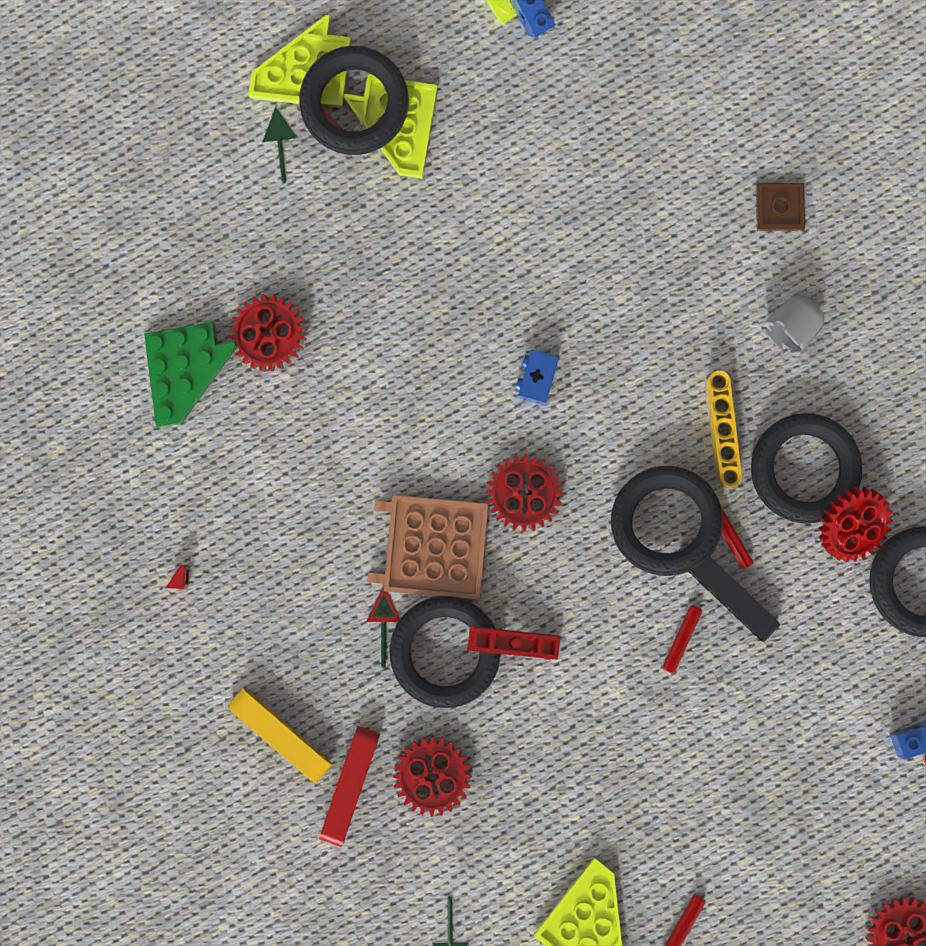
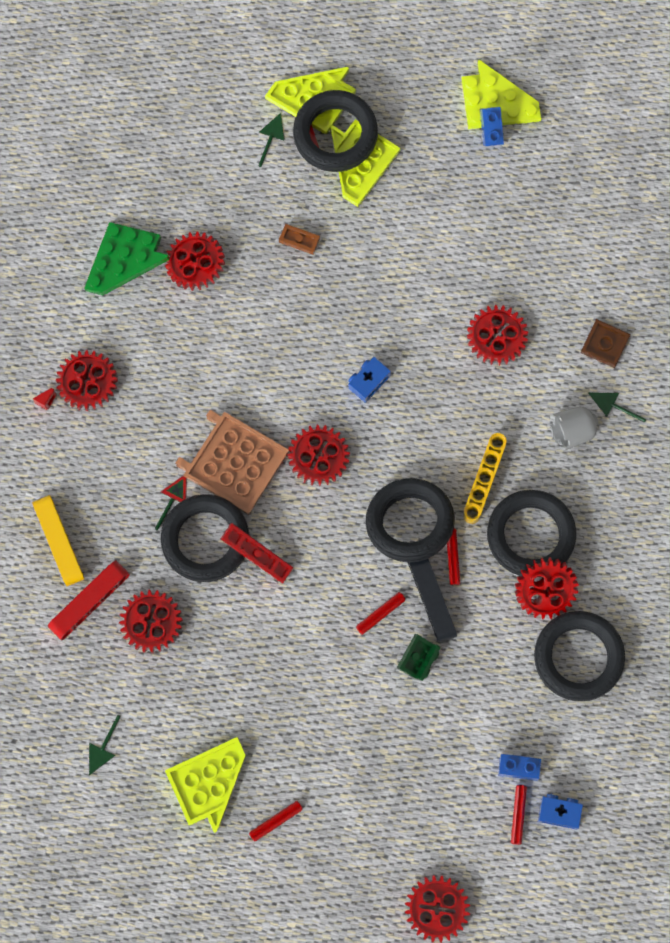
camera: 30 degrees right, 10 degrees down
(236, 528) = (70, 377): none -> red gear
(374, 249) = (299, 239): none -> dark orange plate
(636, 249) = (510, 344): none -> red gear
(751, 670) = (418, 658): none -> dark green bracket
(812, 274) = (606, 401): none -> dark green piece

